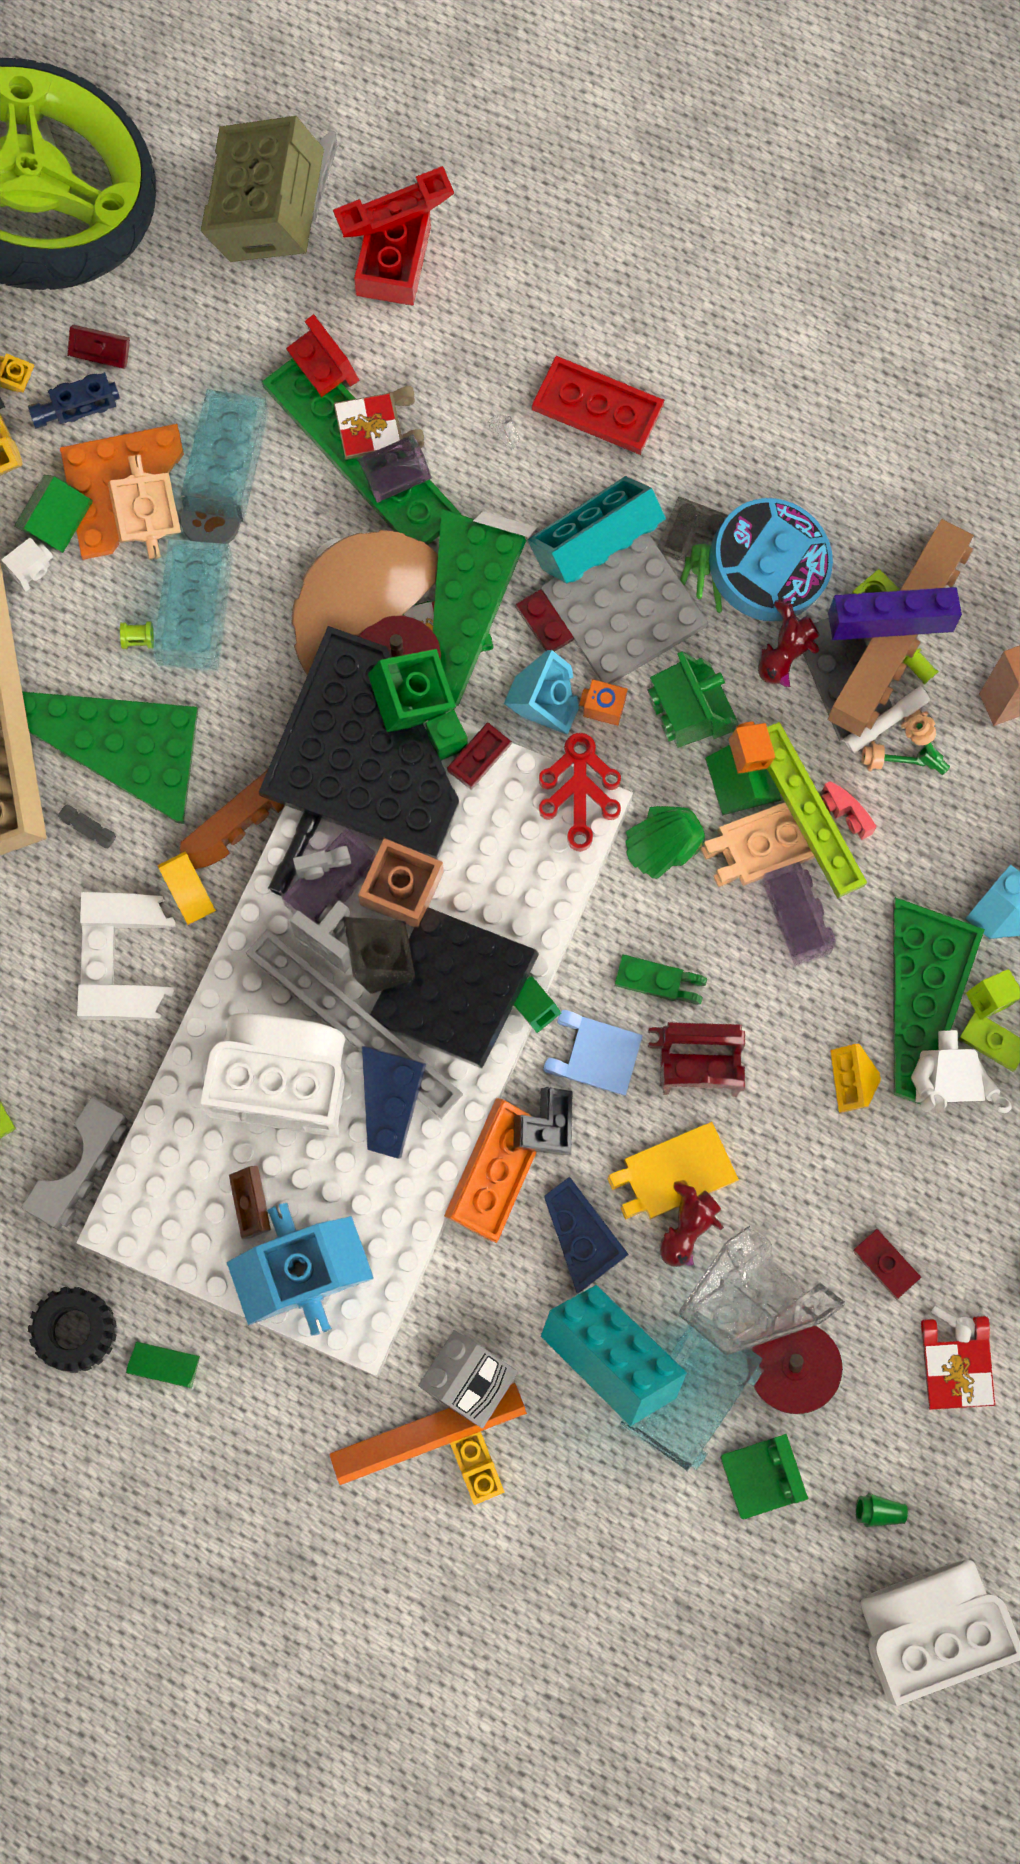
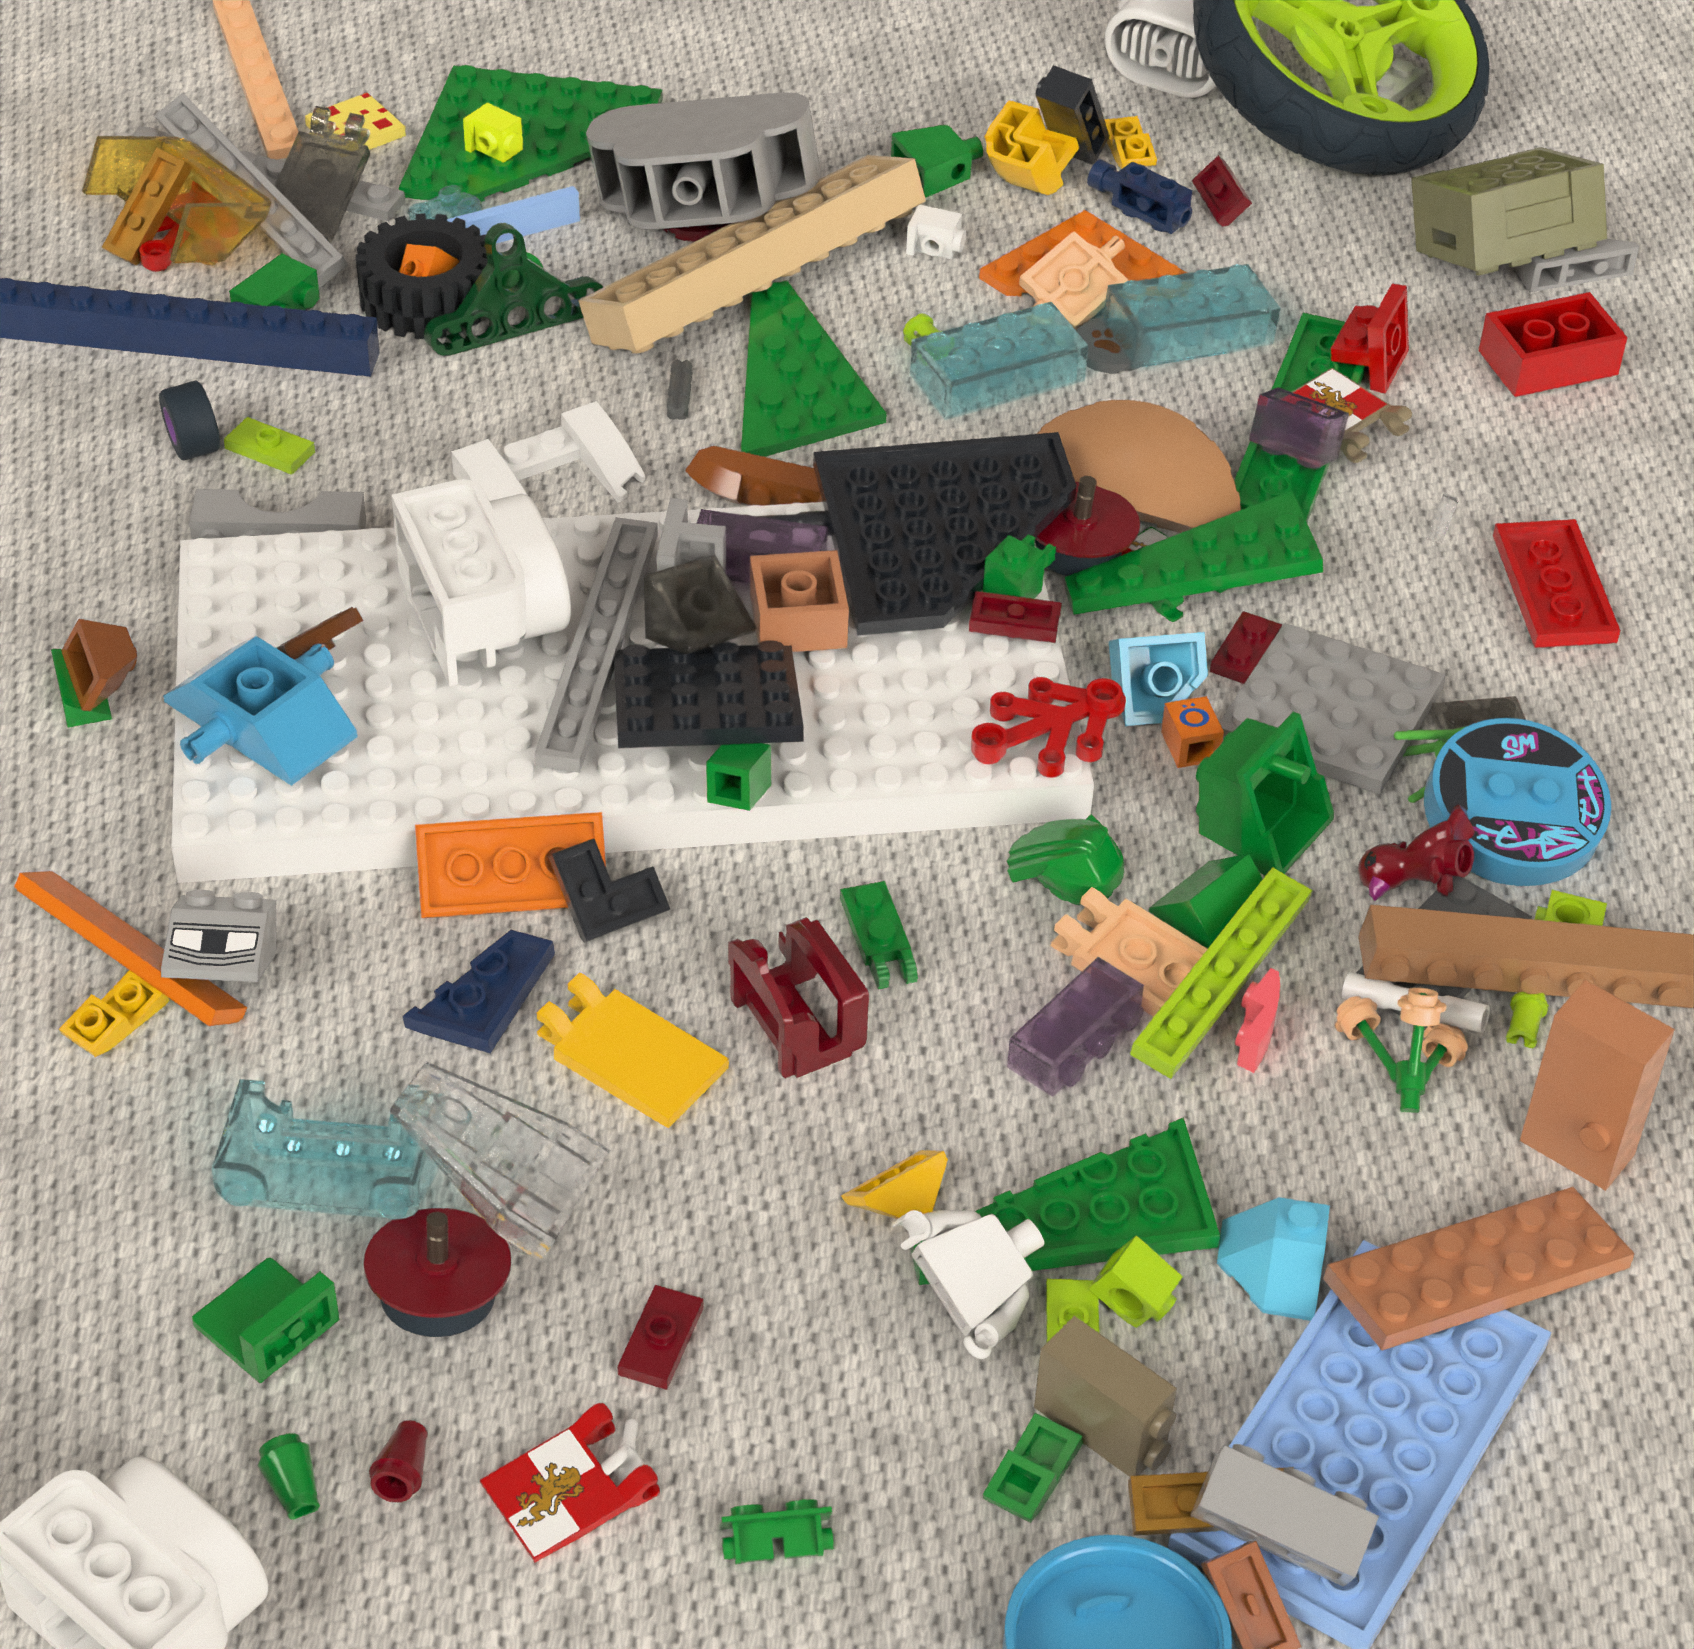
camera: 60 degrees right, 30 degrees down
(45, 1322) = (75, 582): black tyre -> none
(53, 512) = (1005, 221): green slope -> none
(161, 1347) = (98, 660): none -> dark orange slope
(186, 888) = (664, 474): yellow slope -> none
(315, 864) = (759, 507): light grey plate -> none
(390, 1099) = (523, 700): dark blue wing -> none
(395, 208) = (1555, 285): red slope -> none
(411, 689) = (1035, 501): green slope -> none
(505, 524) = (1327, 553): white sticker -> none
(597, 529) = (1395, 622): teal brick -> none
(600, 1055) = (733, 910): light blue flag -> none
(613, 1355) = (331, 1047): teal brick -> none
(694, 1218) = (580, 1083): dark red animal -> none
(751, 747) = (1245, 856): orange brick -> none
(894, 613) = (1549, 908): dark purple brick -> none
(902, 1447) = (400, 1463): none -> dark red cone

